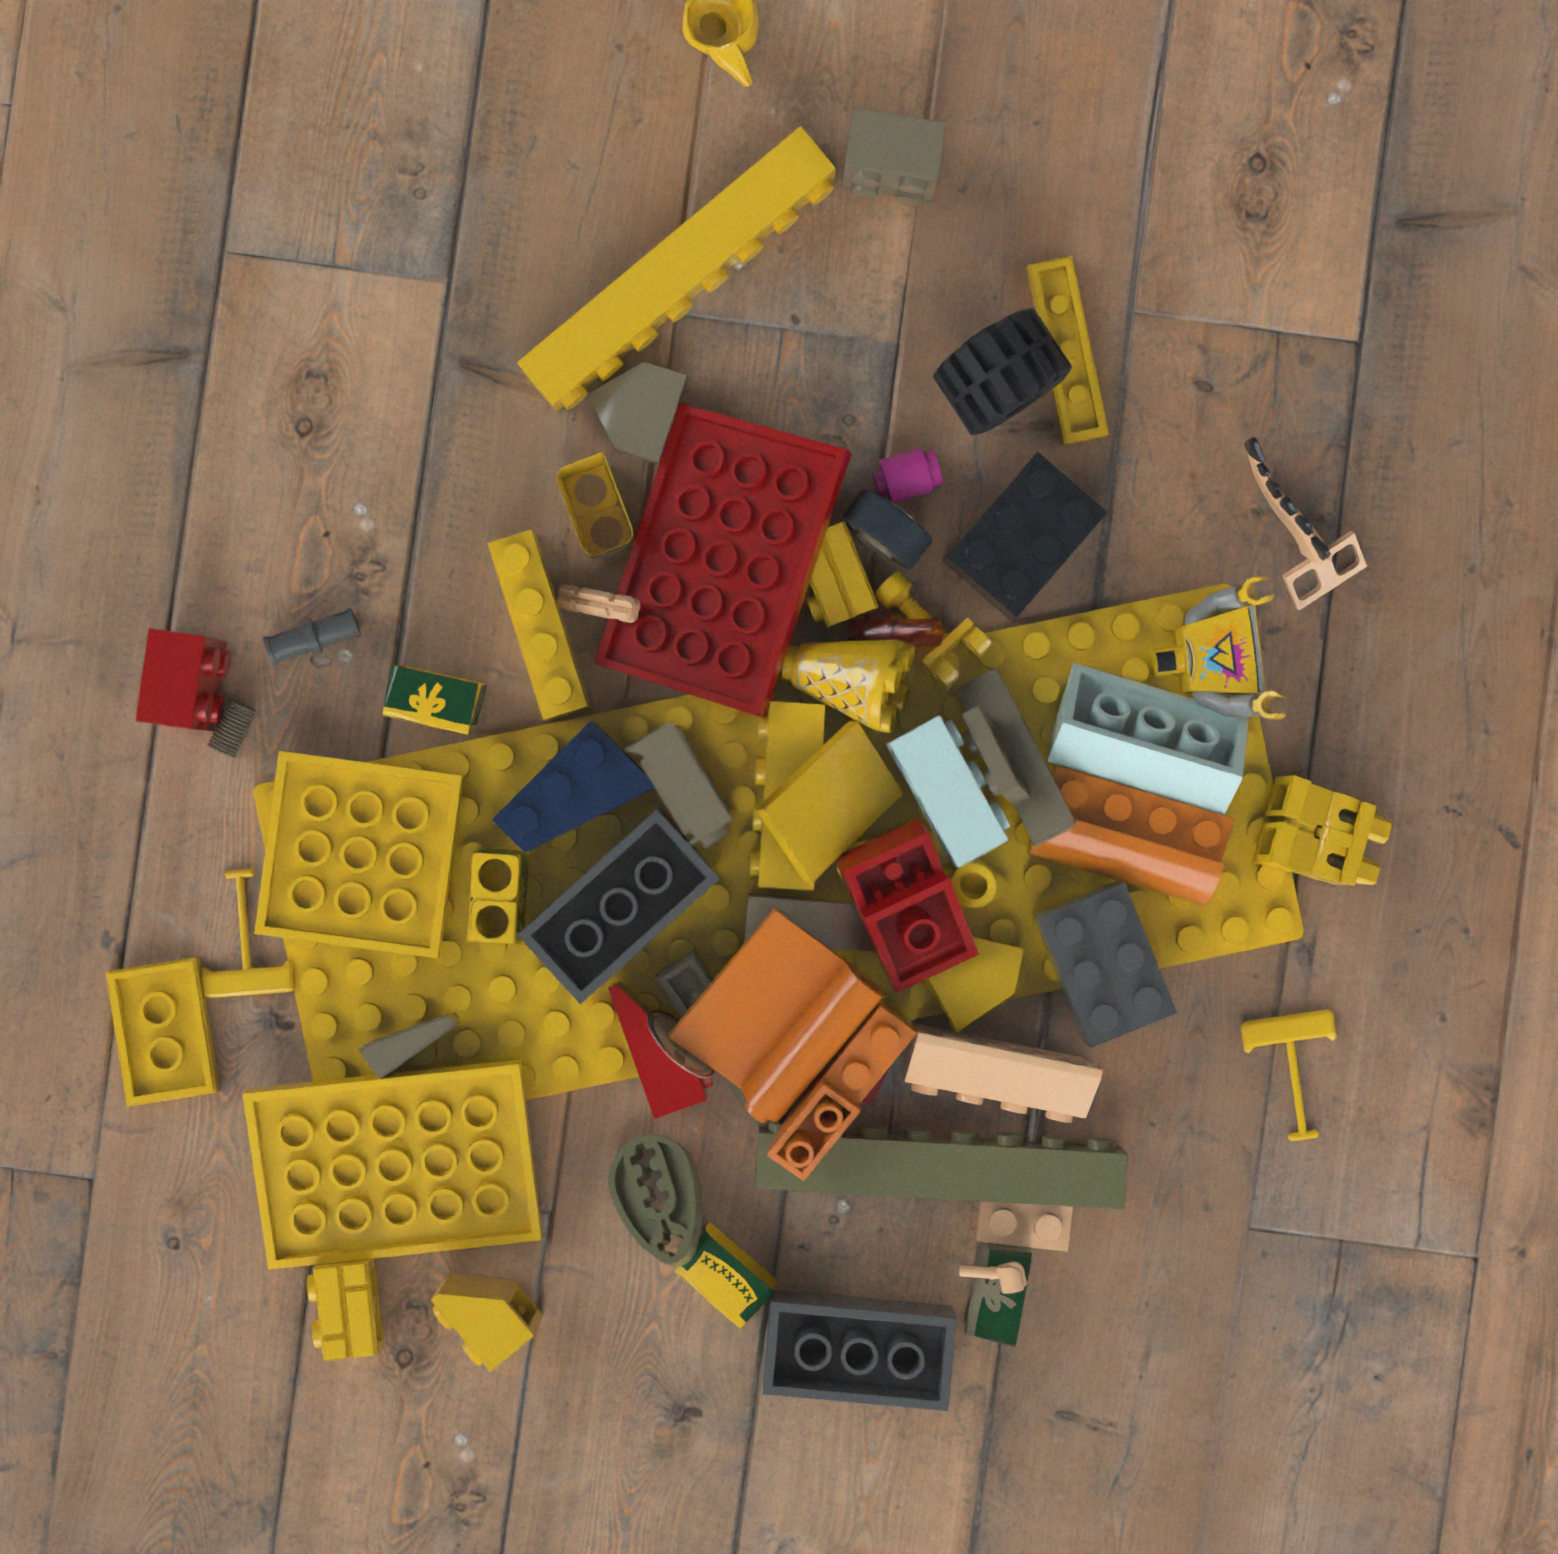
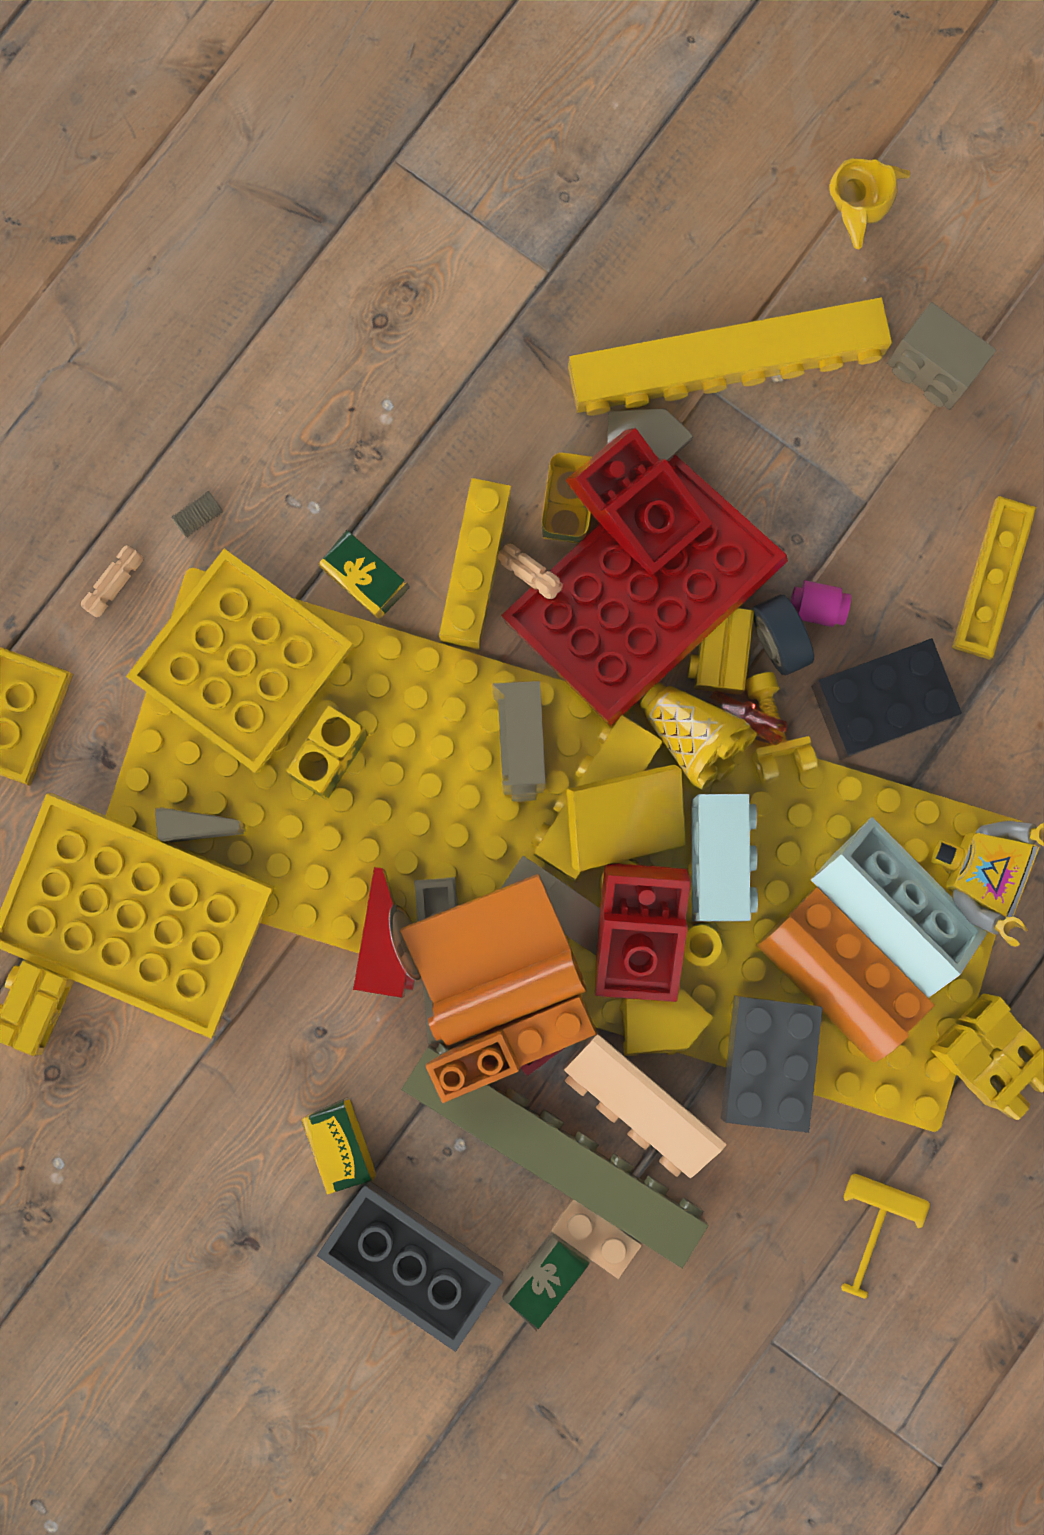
camera: 30 degrees right, 5 degrees down
(182, 680) = (181, 455): red brick -> none
(184, 843) = (111, 581): none -> light nougat axle
(246, 980) = (100, 712): yellow piece -> none
(312, 636) = (297, 478): dark grey pin -> none
(488, 1314) = (136, 1073): yellow slope -> none
(572, 789) = (432, 700): dark blue wedge -> none
(619, 905) = (418, 808): dark grey brick -> none
(633, 1199) = (300, 1046): olive piece -> none
(669, 474) = (639, 500): none -> red slope
(1002, 371) = (938, 561): black wheel -> none
(1010, 1275) = (564, 1269): light nougat hand -> none
(1013, 757) = (787, 862): dark tan bracket -> none

